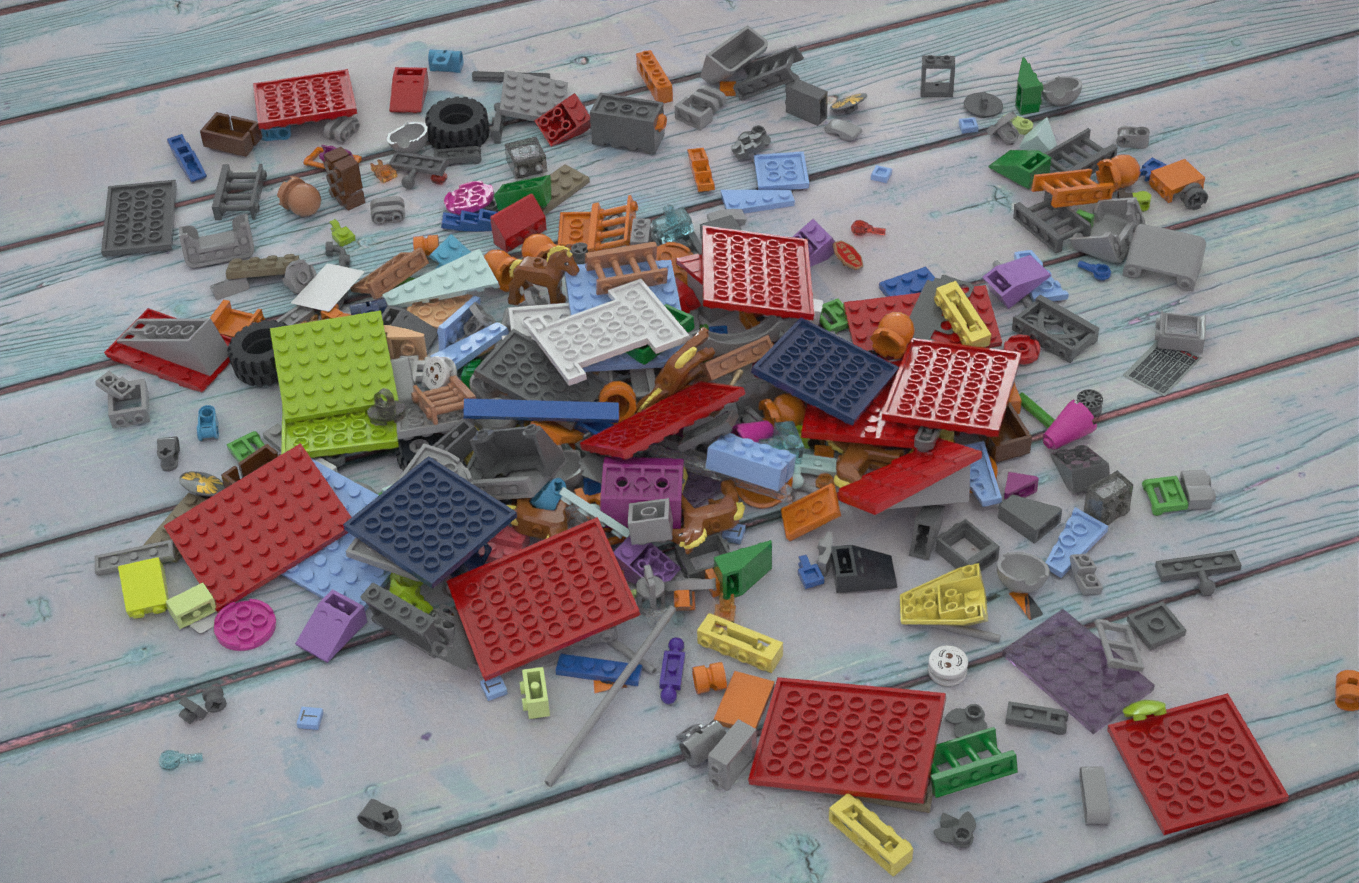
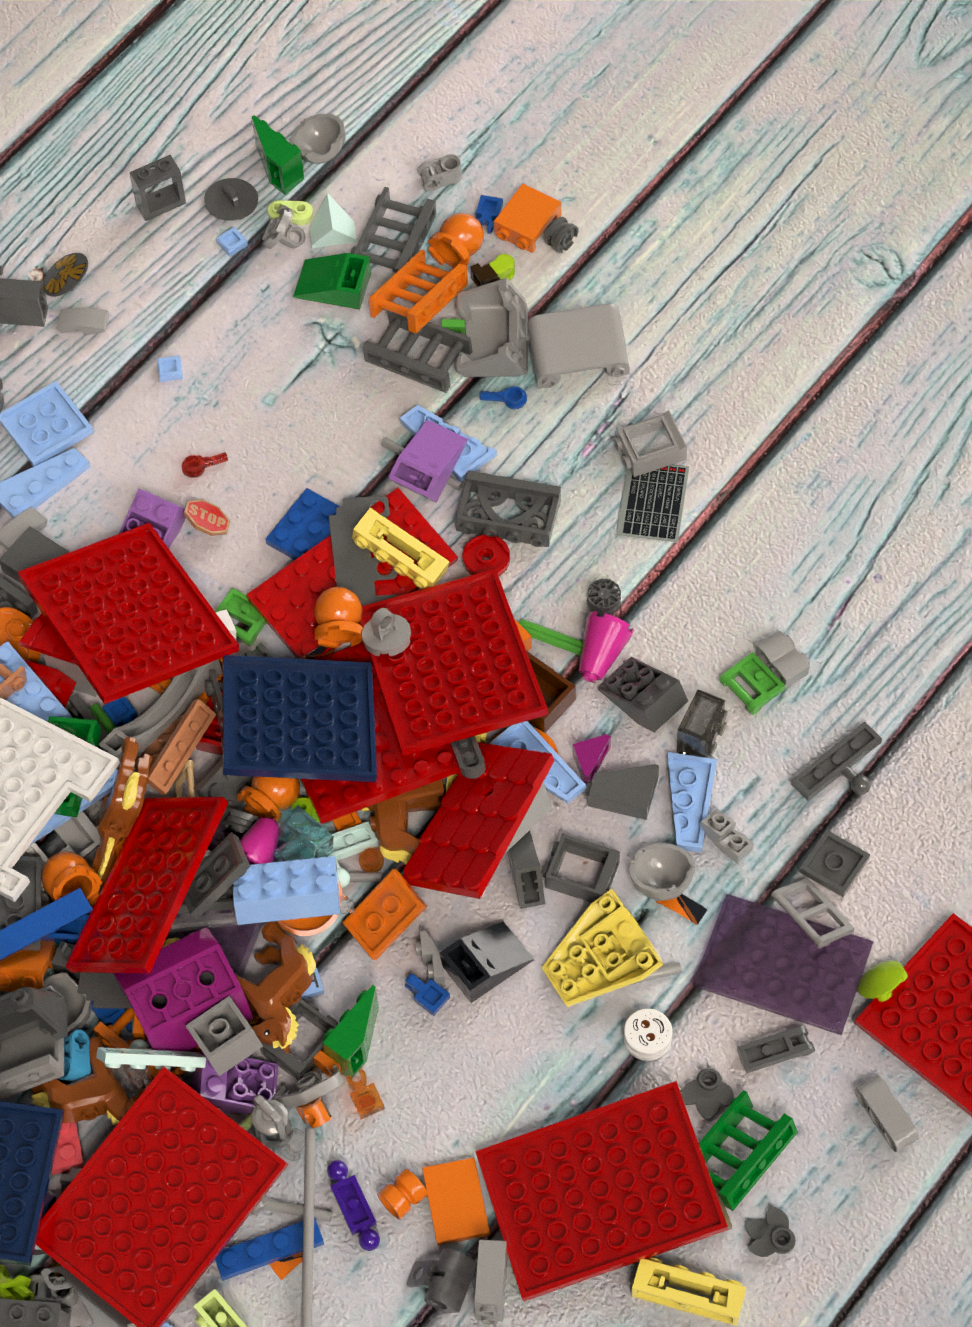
camera: 30 degrees left, 15 degrees up
(740, 643) = (370, 1137): light yellow brick -> none
(919, 354) = (386, 633): none -> light grey tile

